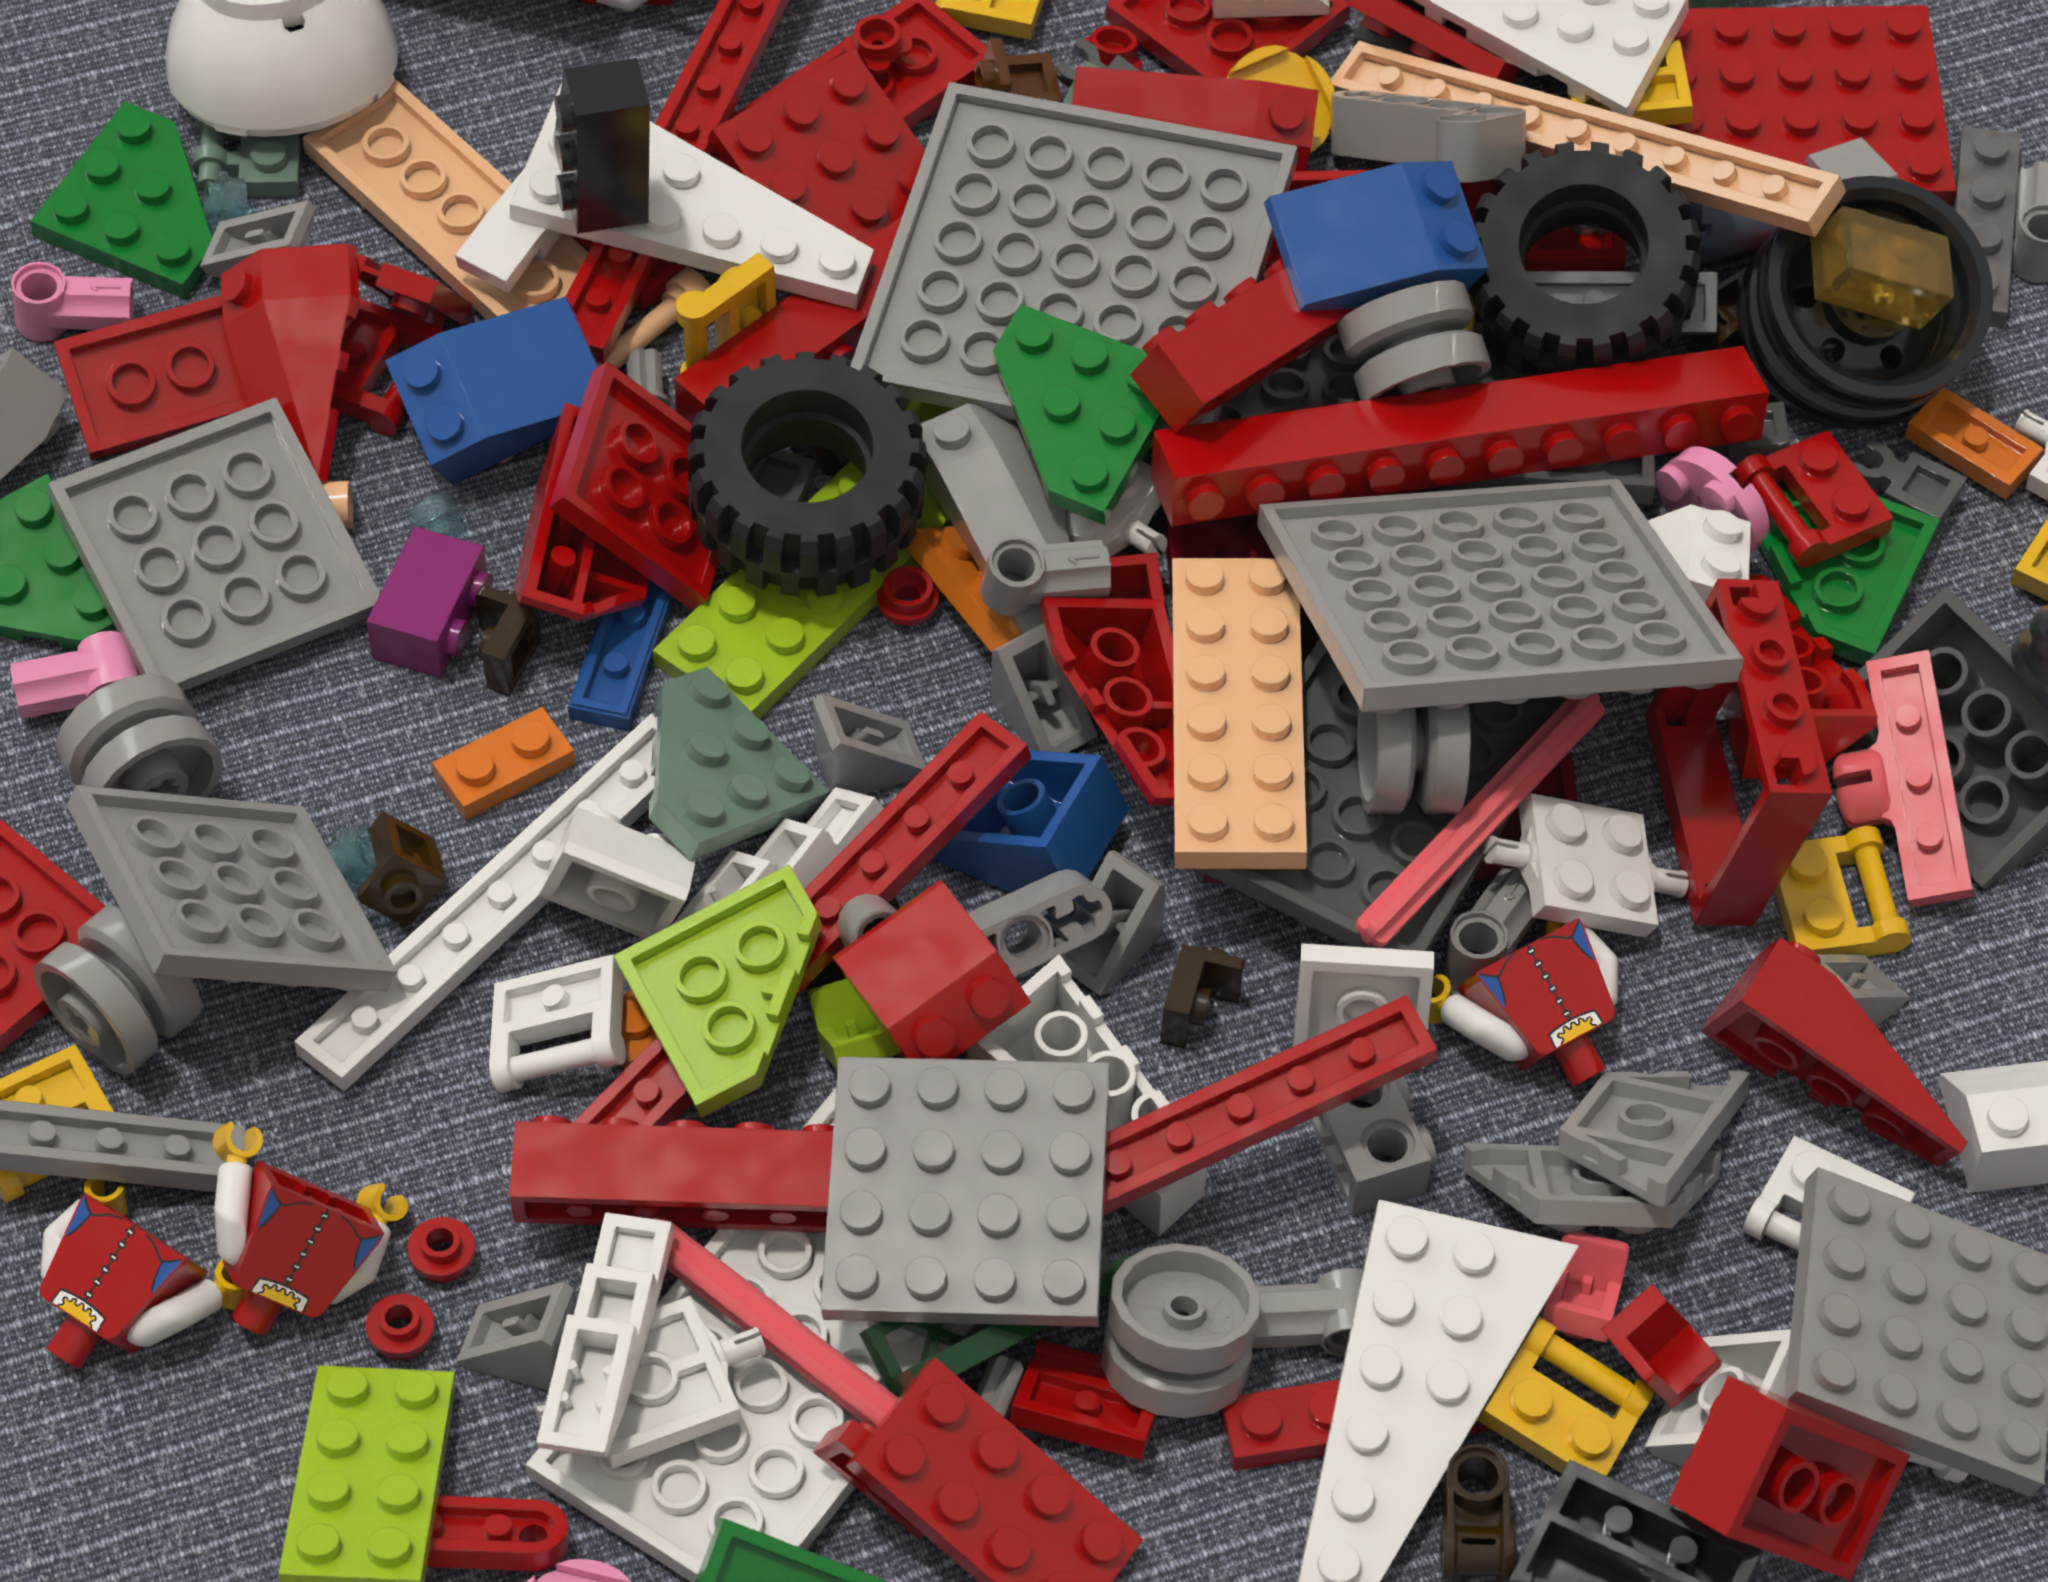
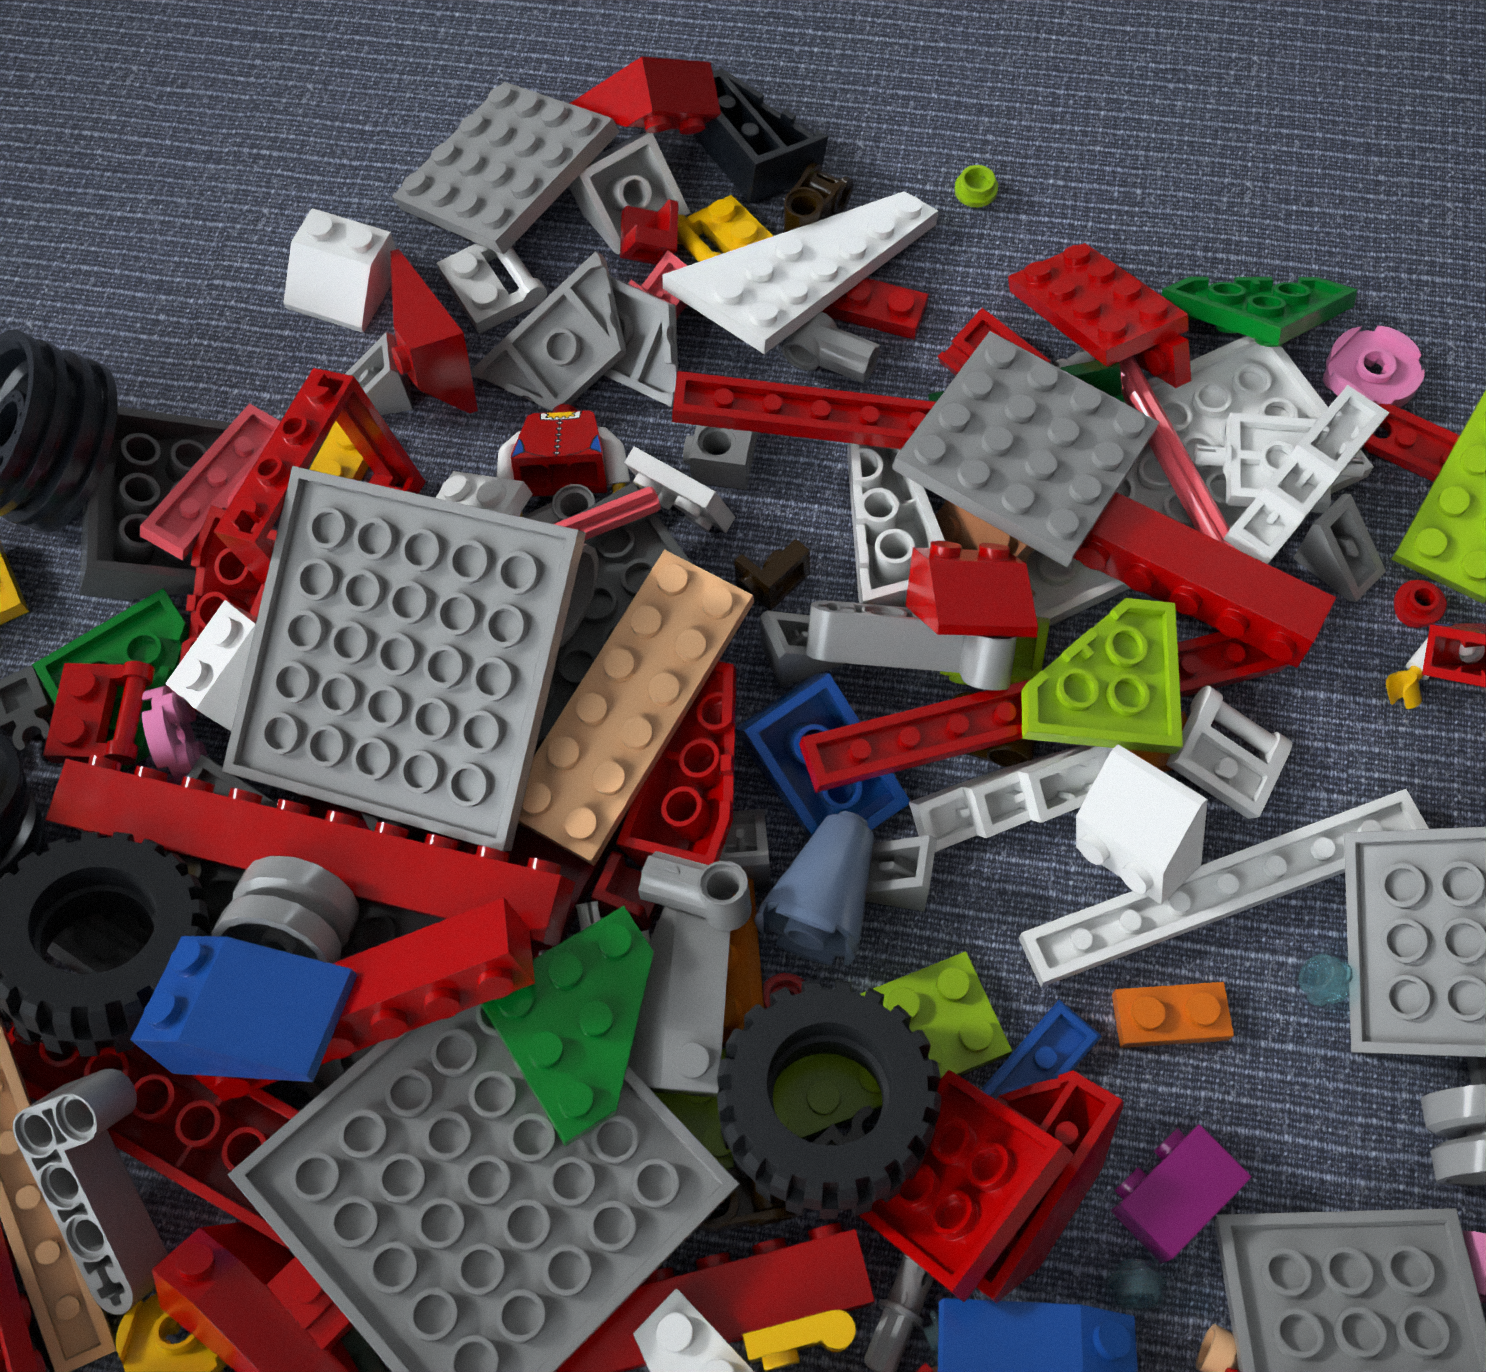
camera: 145 degrees left, 10 degrees up
(405, 872) = (1295, 943): dark brown bracket -> none
(441, 1265) = (1365, 653): red plate -> none
(508, 639) = (1135, 1116): dark brown bracket -> none
(721, 769) = (1019, 894): sand green plate -> none
(922, 667) = (823, 893): none -> sand blue cone
(1180, 1330) = (921, 342): light grey wheel -> none

